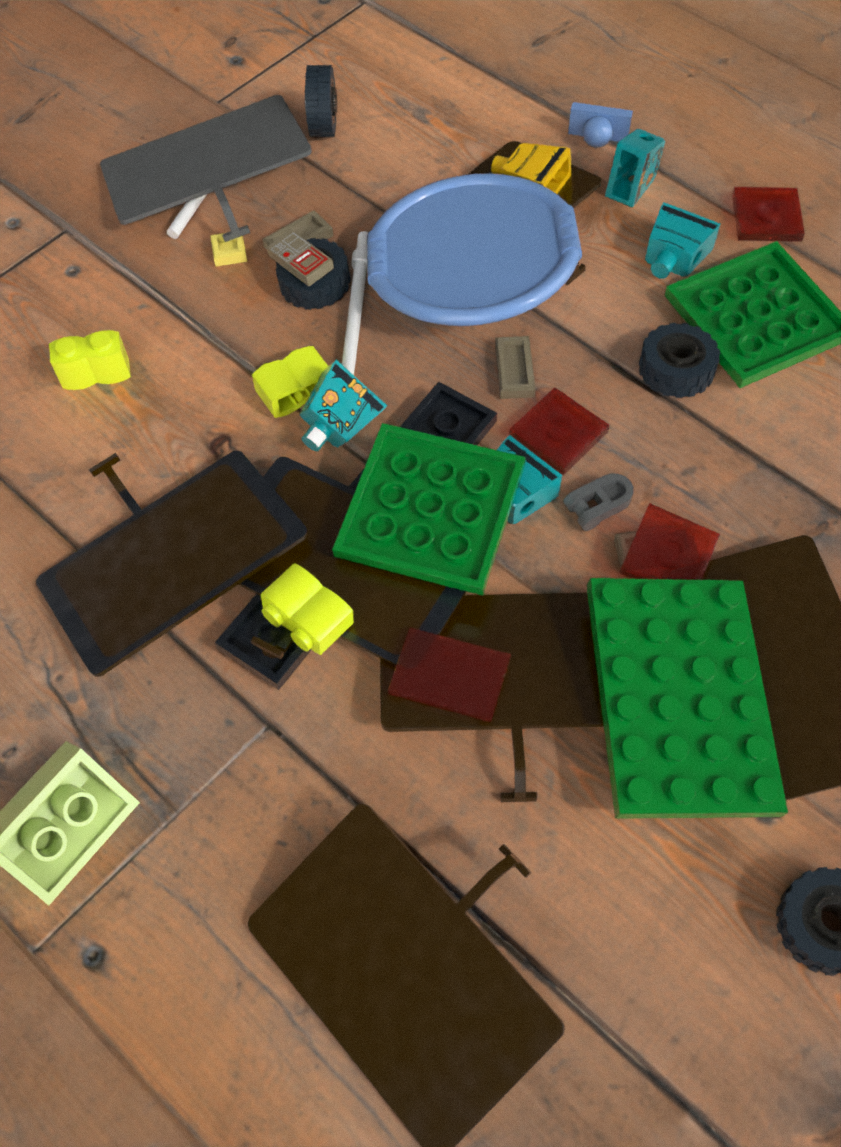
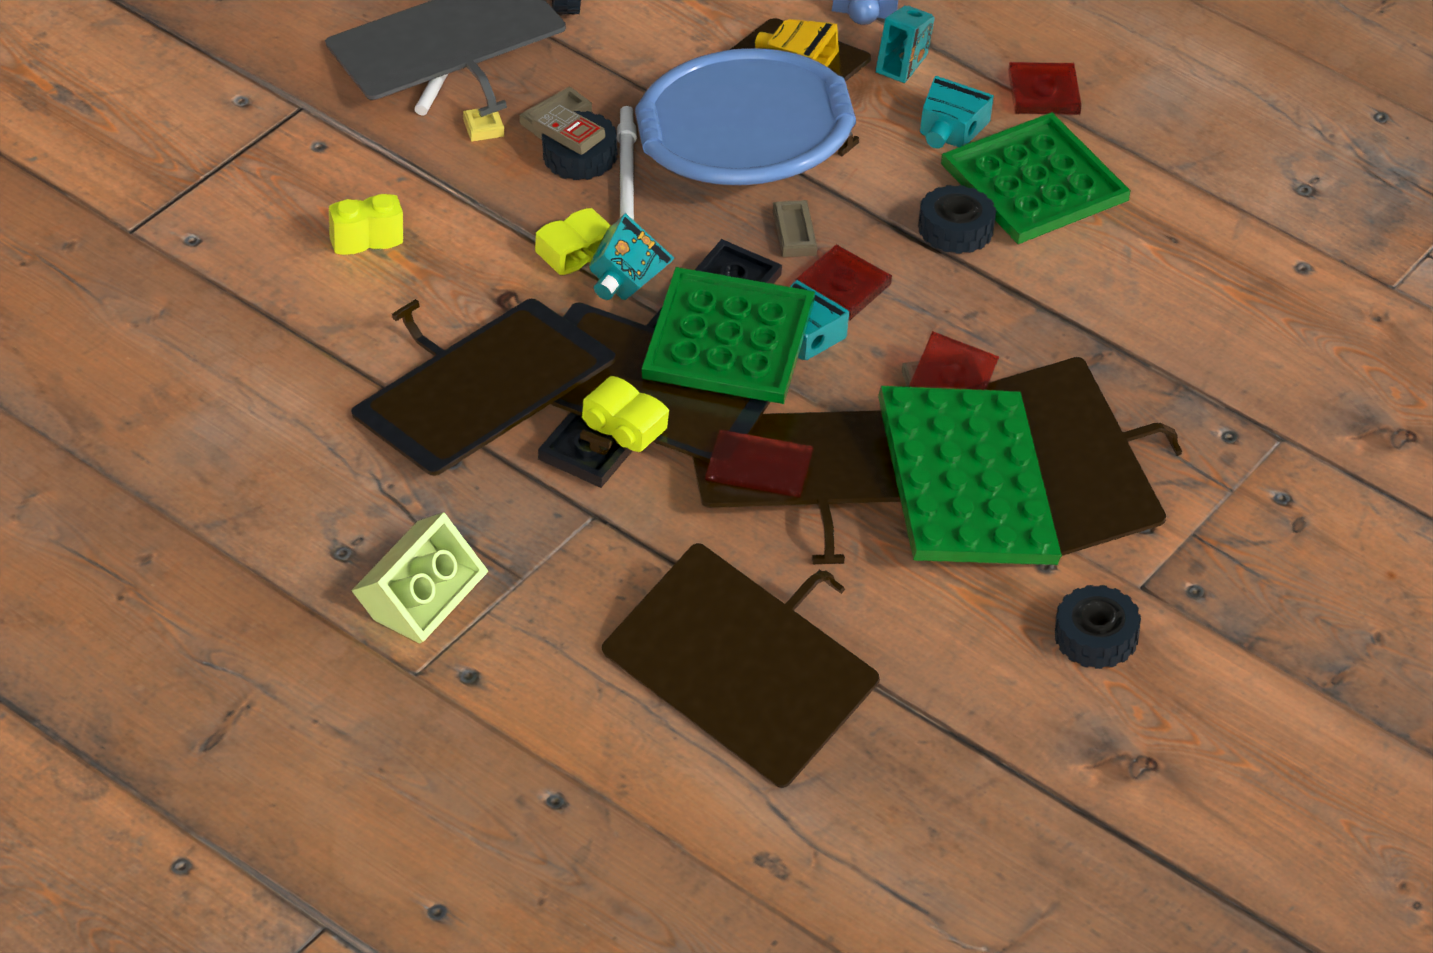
camera: 10 degrees left, 15 degrees down
(611, 493) = (896, 331): dark grey plate -> none

